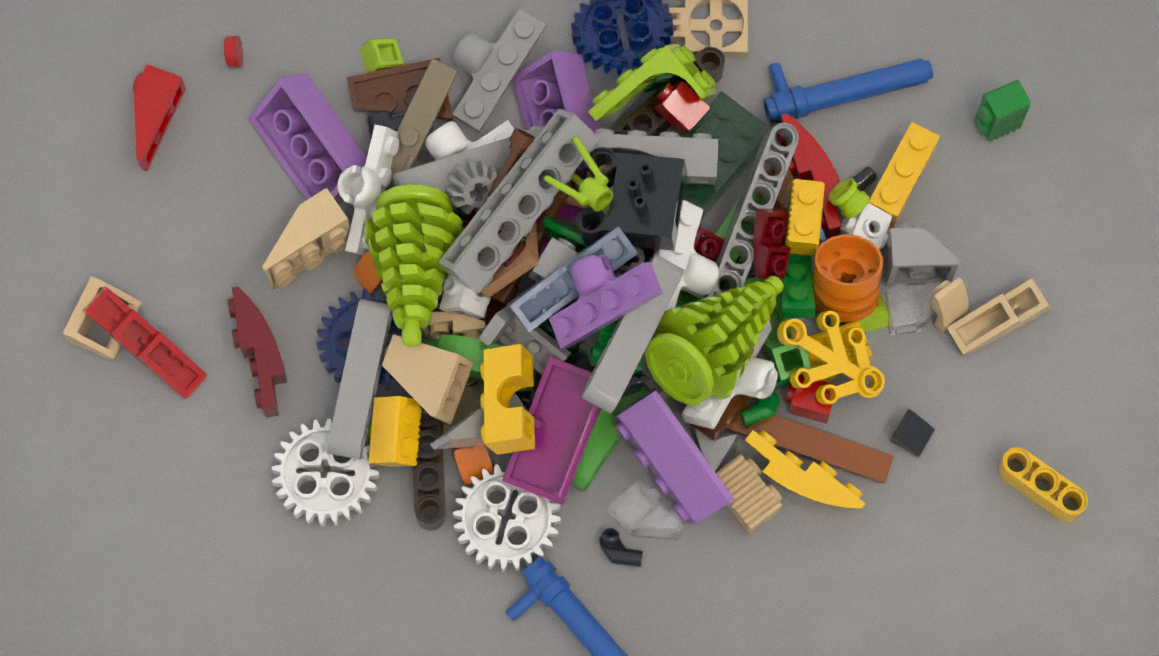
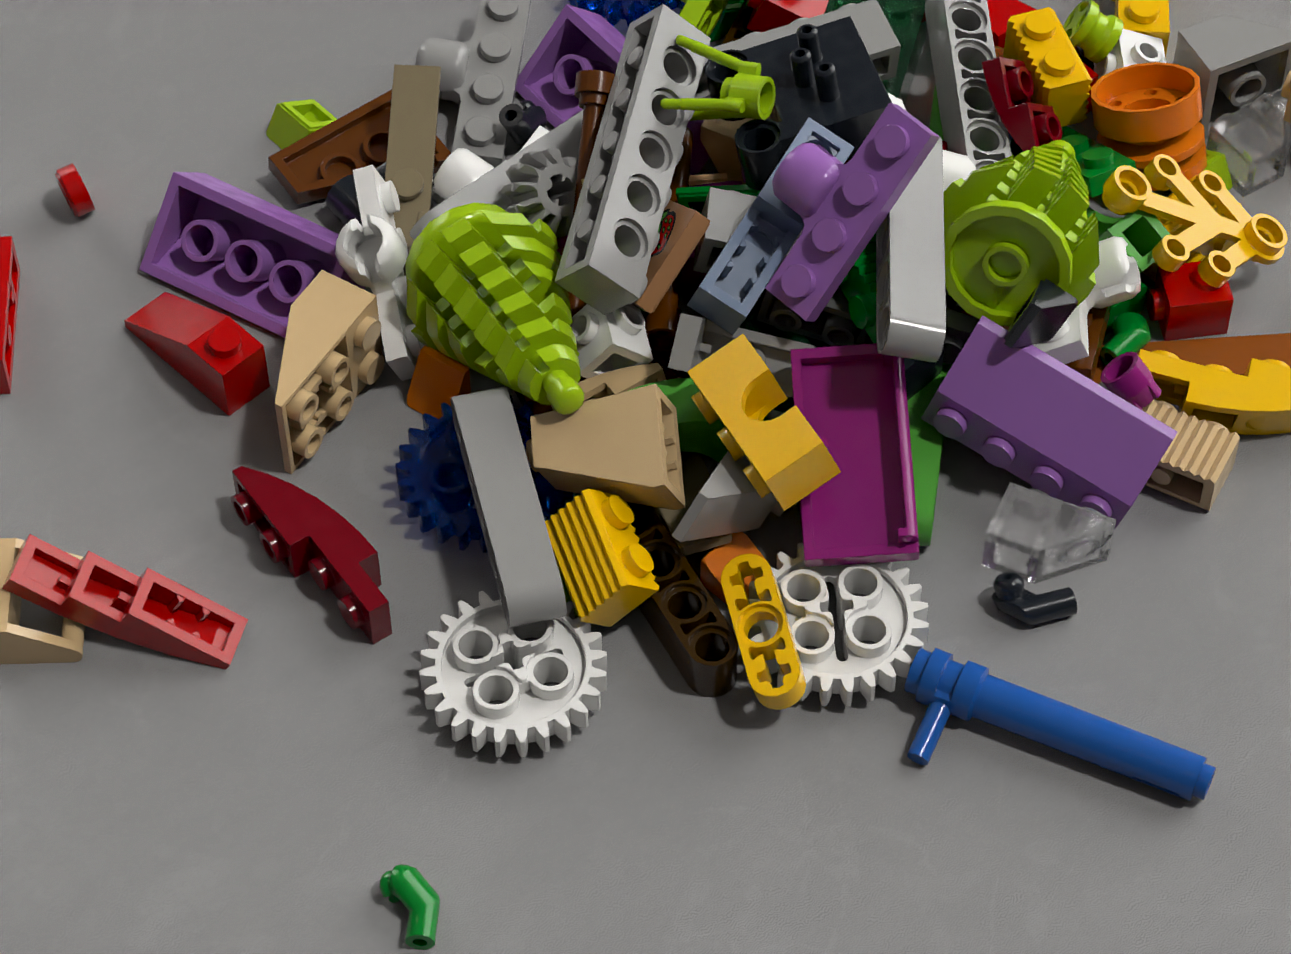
camera: 25 degrees left, 20 degrees down
(217, 583) = (410, 887): none -> green arm
(255, 189) = (204, 349): none -> red slope
(473, 491) = (779, 646): none -> yellow beam
(499, 115) = (522, 122): none -> black arm
(683, 405) = (1040, 315): none -> black slope
(735, 448) = (1130, 380): none -> magenta hose

